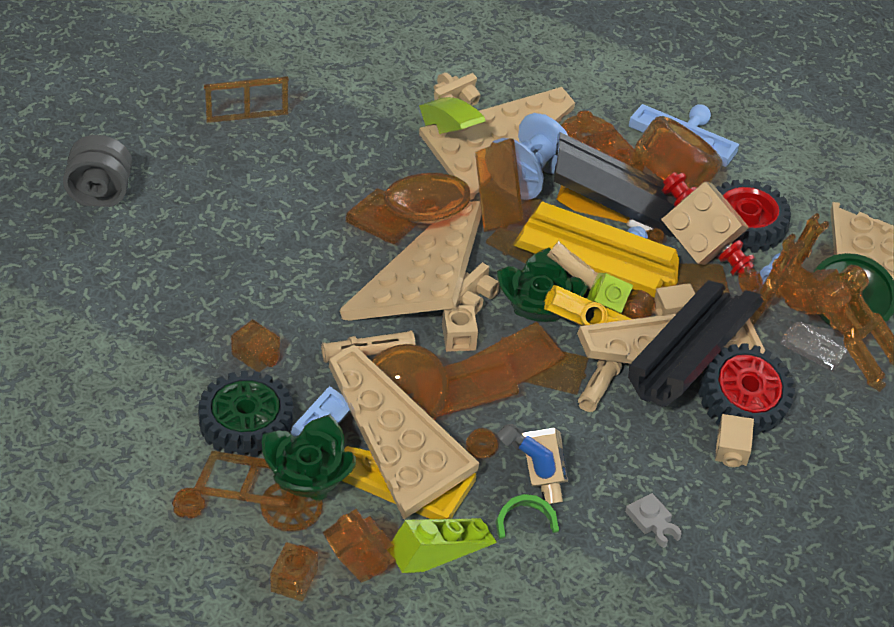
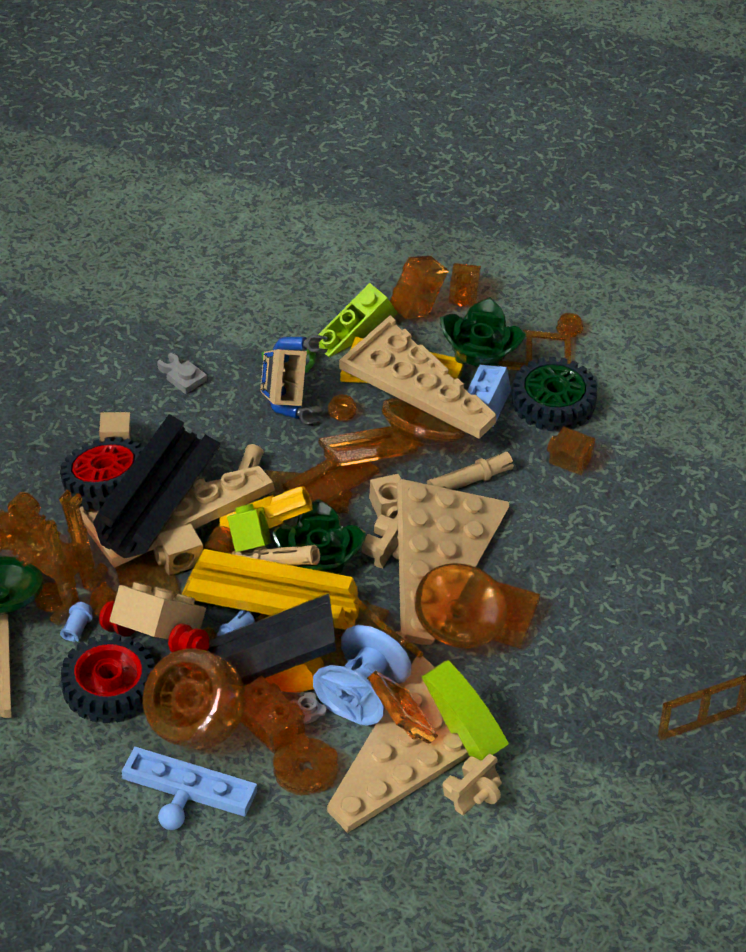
camera: 170 degrees right, 0 degrees up
(506, 115) = (402, 707): none -> clear orange plate

